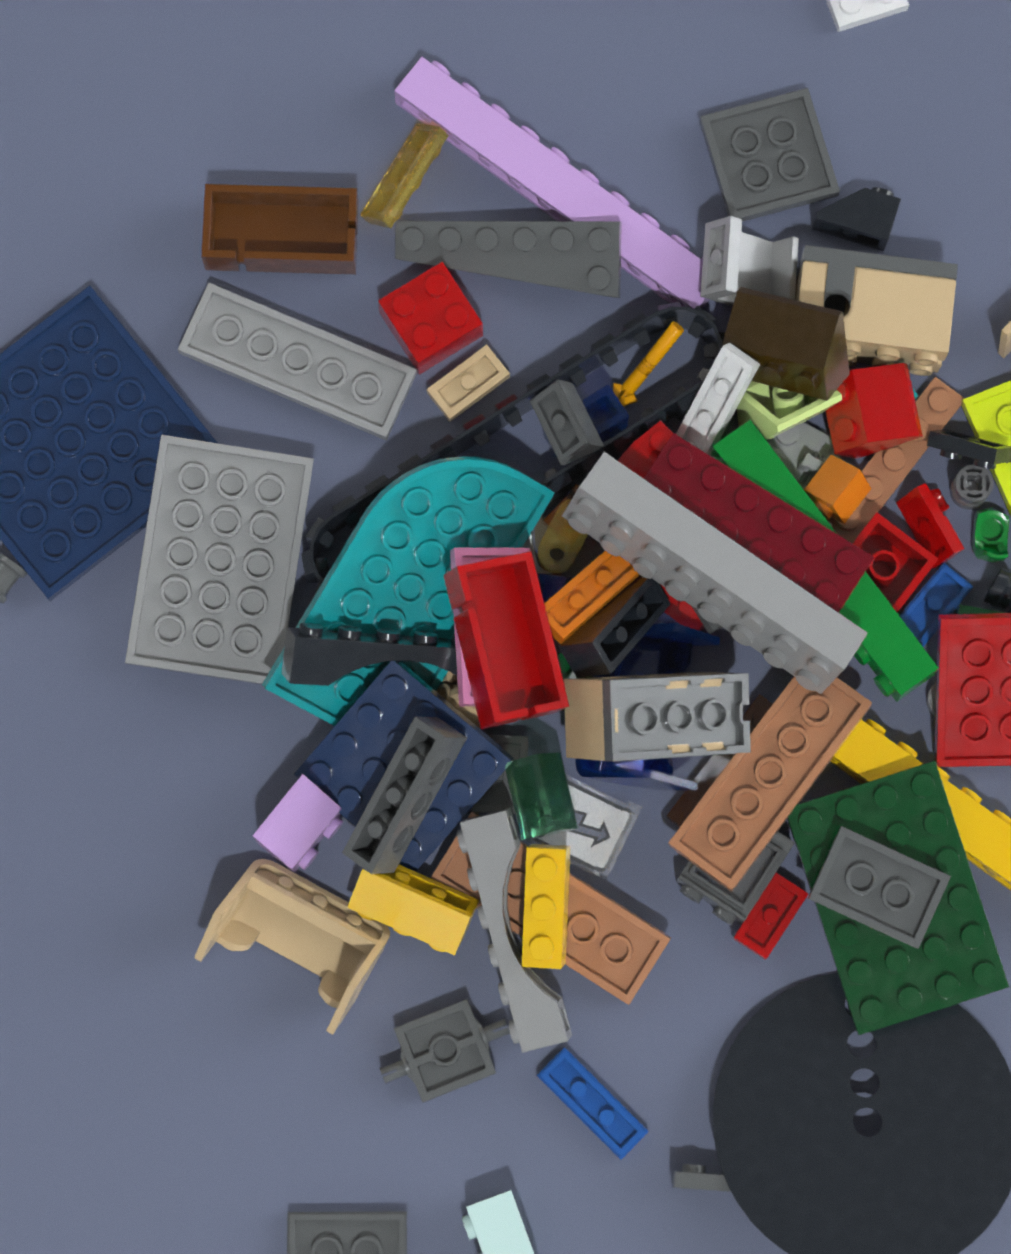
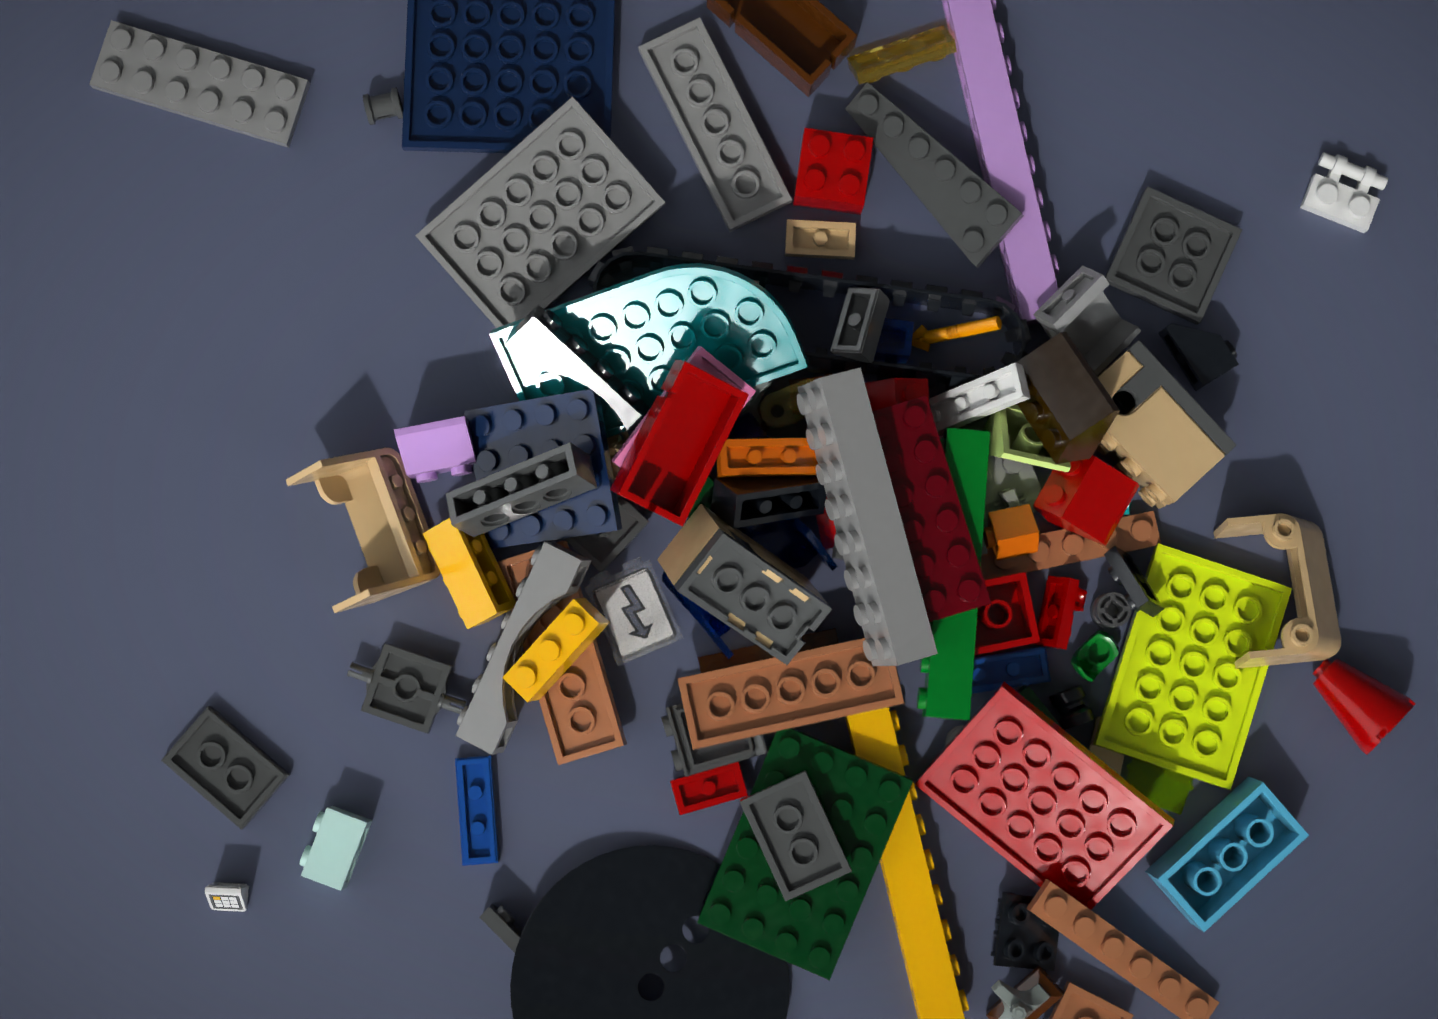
camera: 35 degrees right, 5 degrees up
(540, 795) = (618, 570): clear green brick -> none

